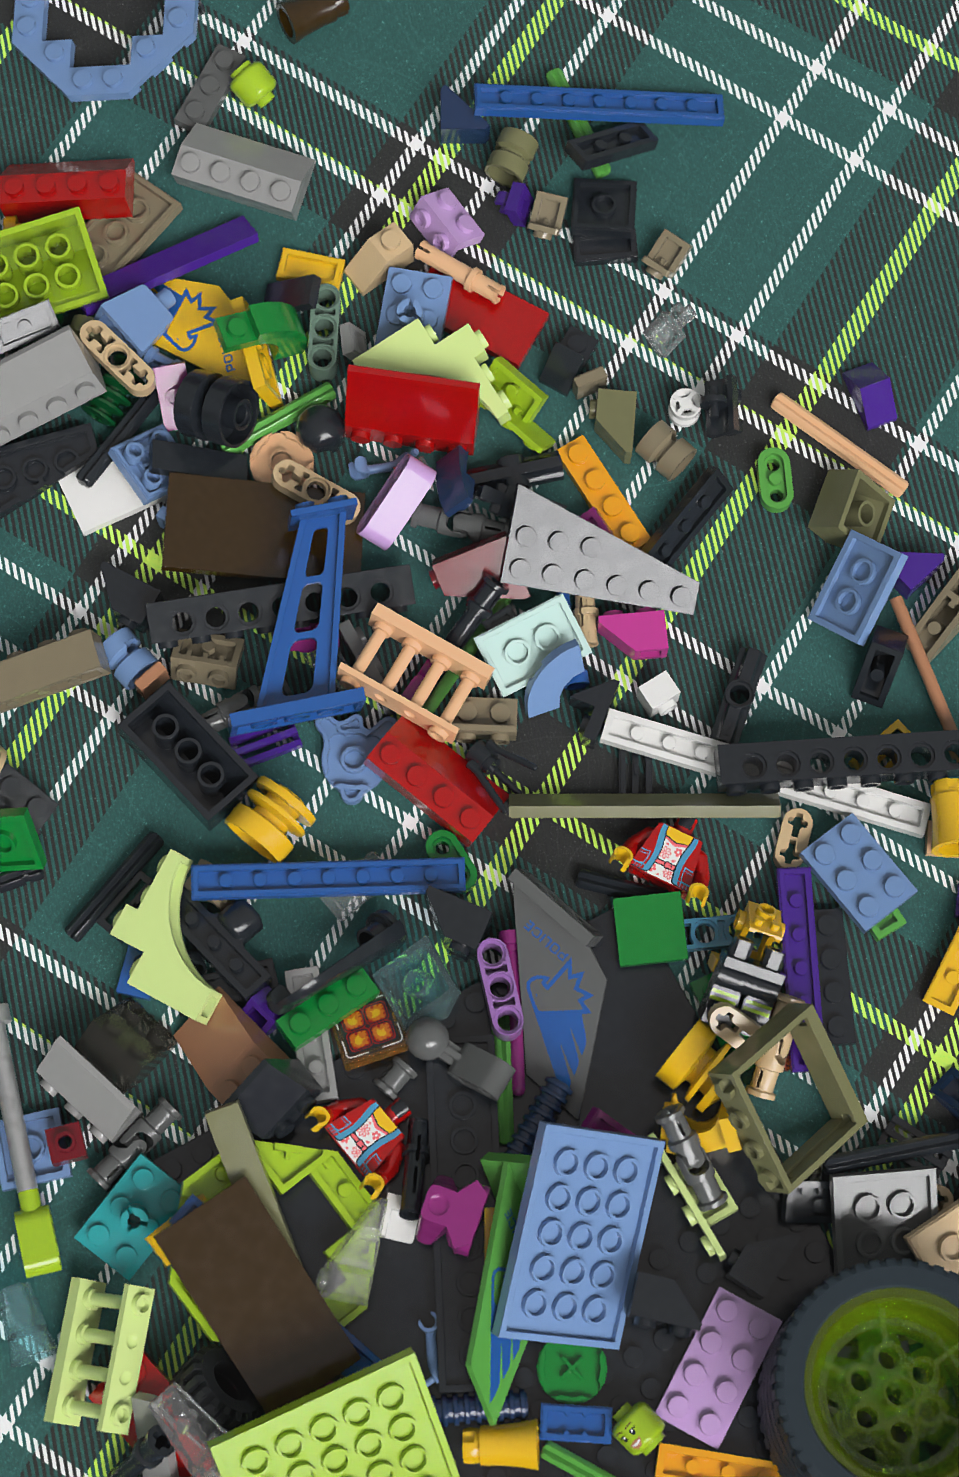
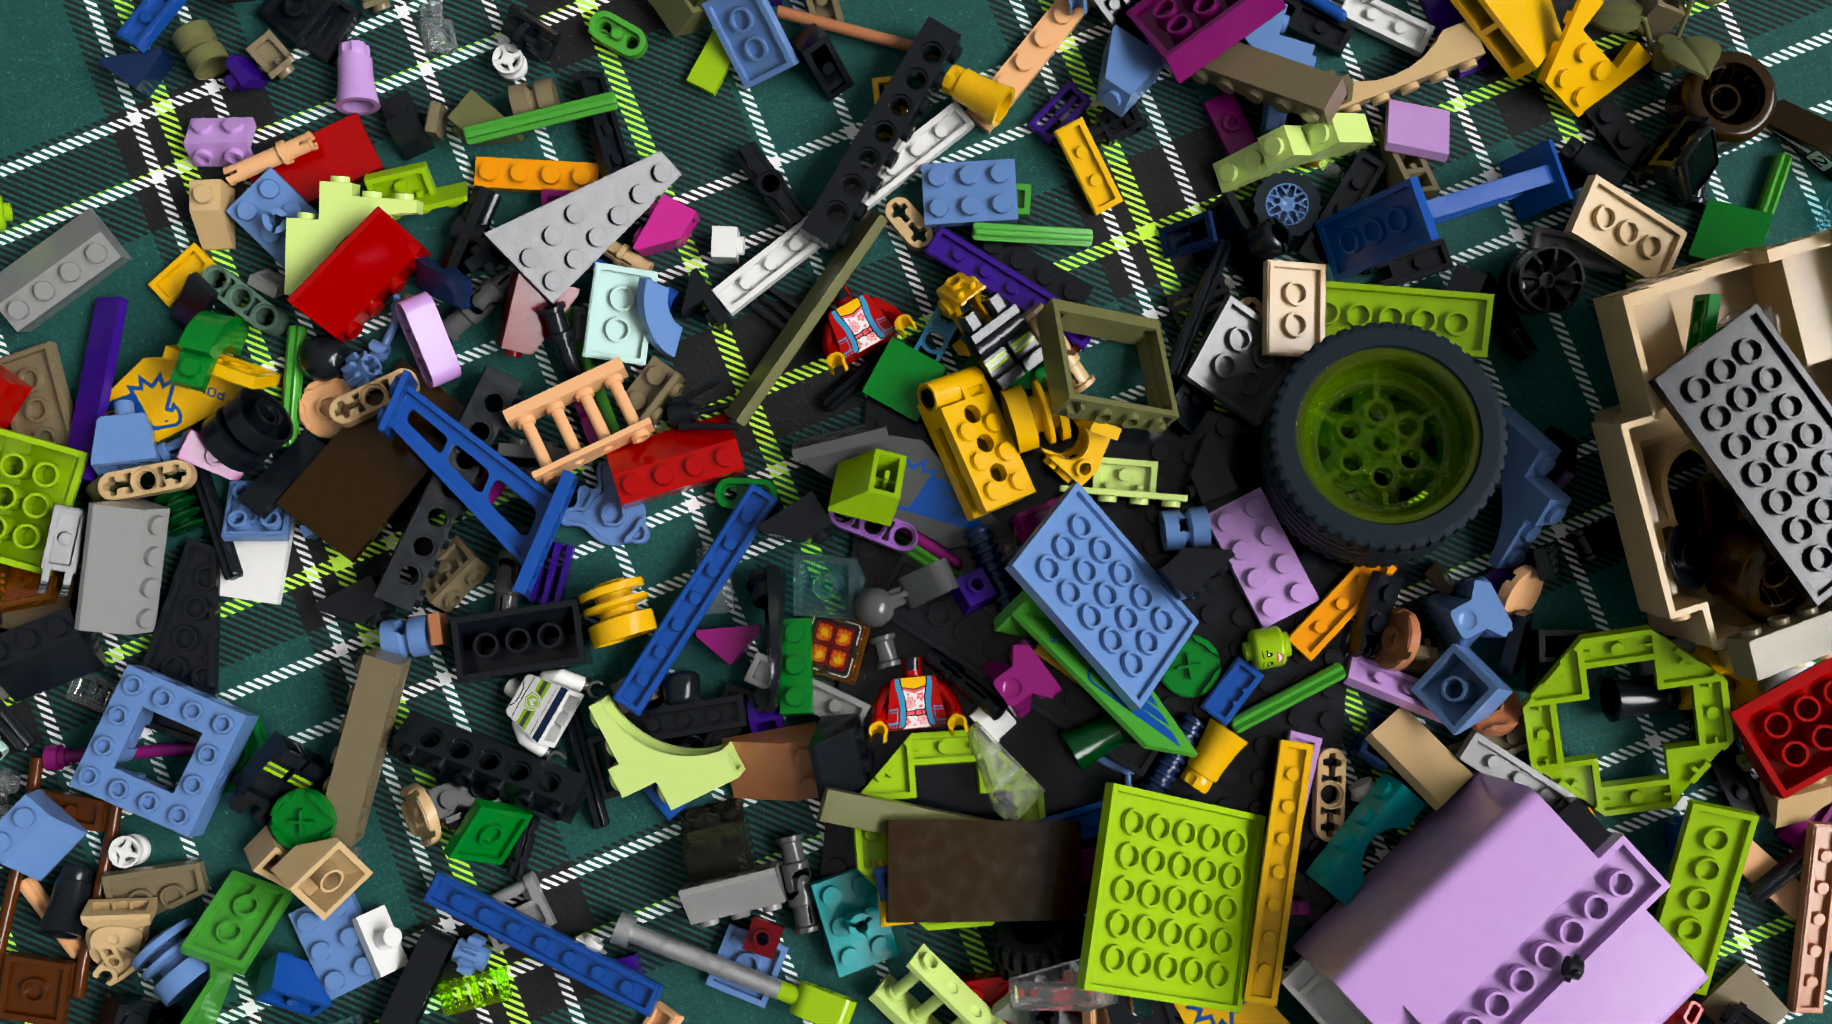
camera: 55 degrees left, 10 degrees up
(61, 804) = (438, 746): none -> black brick
(143, 815) = (544, 707): none -> white torso
(310, 937) = (729, 642): none -> magenta slope
(332, 465) = (361, 369): none -> medium blue gear
(442, 1320) = (1093, 740): none -> dark green plant
(494, 1122) = (969, 598): none -> dark purple plate
(531, 958) = (869, 486): none -> lime slope
(576, 294) = (356, 79): none -> lavender plant
(636, 1028) = (973, 442): none -> yellow hinge
(654, 465) = (540, 118): none -> bright green axle
(690, 1155) = (1101, 470): dark grey piece -> none
(706, 1281) = (1196, 528): none -> medium blue wheel
(741, 1020) = (1025, 361): tan beam -> none
(804, 576) = (710, 67): none -> lime tile
(862, 954) = (1031, 234): none -> bright green axle

